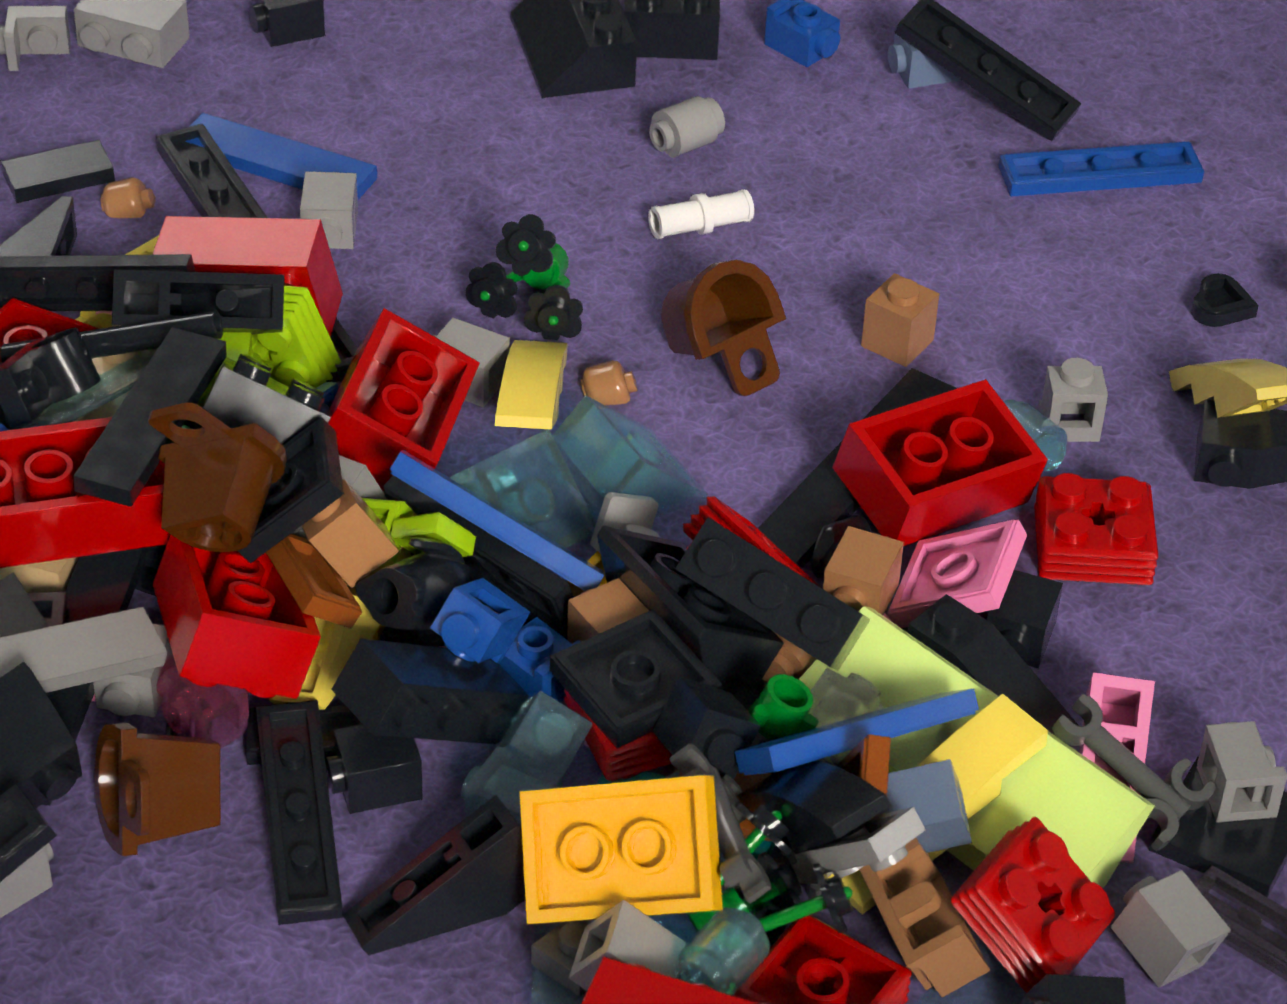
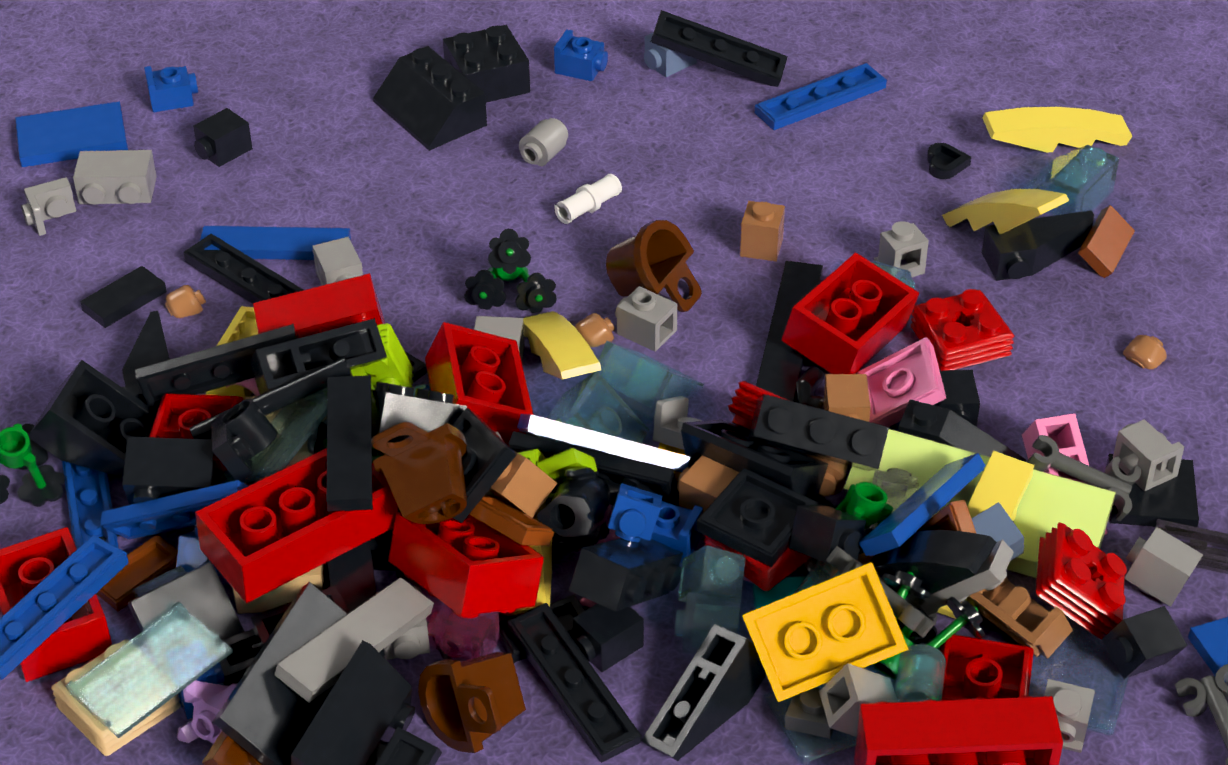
camera: 20 degrees left, 0 degrees up
(677, 387) = (646, 318): none -> light grey brick

